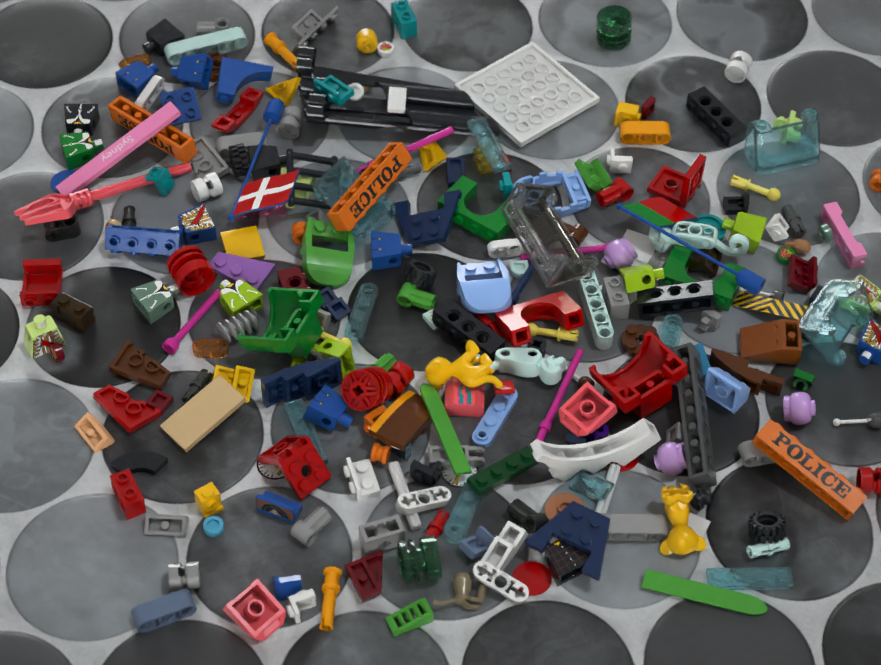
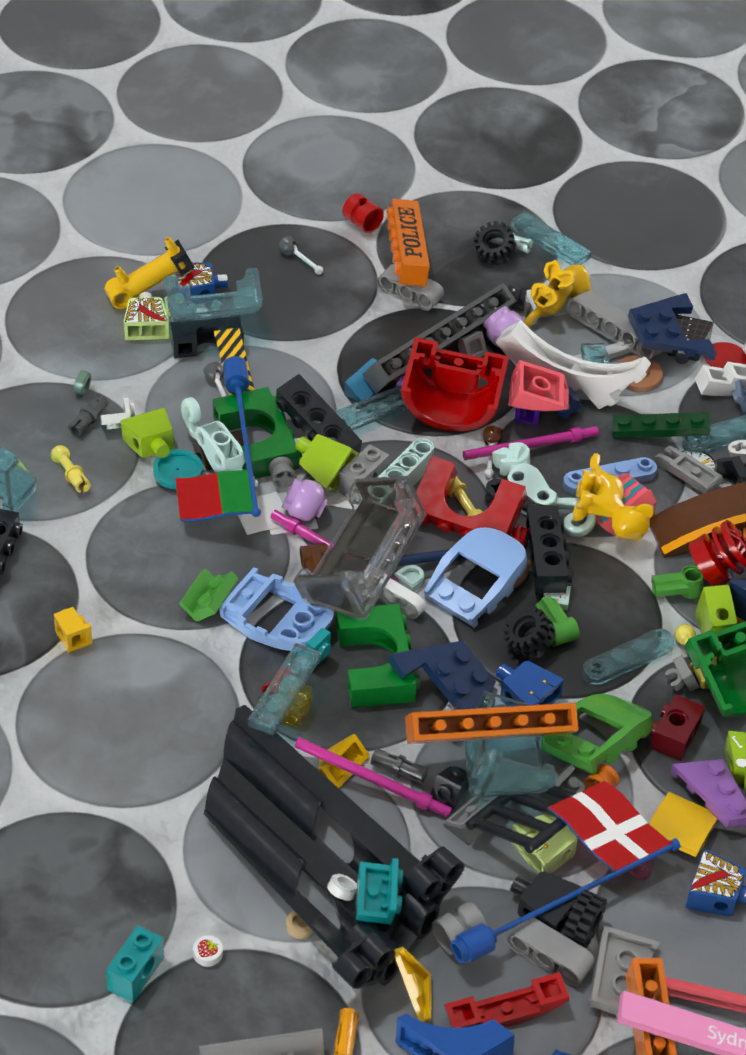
camera: 135 degrees left, 5 degrees down
(162, 179) = (709, 976): teal bracket -> none
(200, 187) = (658, 922): white wheel -> none
(333, 304) = (650, 686): dark blue slope -> none
(366, 41) = (222, 972): yellow head -> none
(396, 100) = (314, 825): white slope -> none
(401, 377) = (670, 559): red wheel -> none
(445, 430) = (678, 486): bright green piece -> none
(455, 169) = (337, 724): dark blue tile -> none
(508, 388) = (569, 482): red slope -> none
(527, 94) = (133, 746): white plate -> none
(530, 519) = (682, 377): pearl dark grey piece -> none
(618, 190) = (203, 558): red piece -> none
(619, 164) = (163, 588): white bracket -> none
(634, 333) = (389, 424): reddish brown plate -> none
(645, 132) = (85, 597): light orange beam -> none
(648, 107) = (38, 619): dark red tile -> none
(684, 183) = (142, 509): red bracket -> none
(703, 593) = (604, 256): bright green piece -> none
(725, 389) = (377, 333): light blue slope -> none
(736, 204) = (111, 469): black tile -> none
(752, 377) = (342, 341): reddish brown slope -> none
(772, 342) = (282, 340): dark orange slope -> none
(783, 254) = (144, 399): green tile -> none
(799, 246) = (121, 390): medium nougat cylinder -> none
(799, 408) = (343, 285): lavender piece -> none
(802, 273) = (161, 368): dark red bracket -> none
(803, 377) = (298, 306): green tile -> none
(848, 246) = (58, 383): bright pink piece -> none

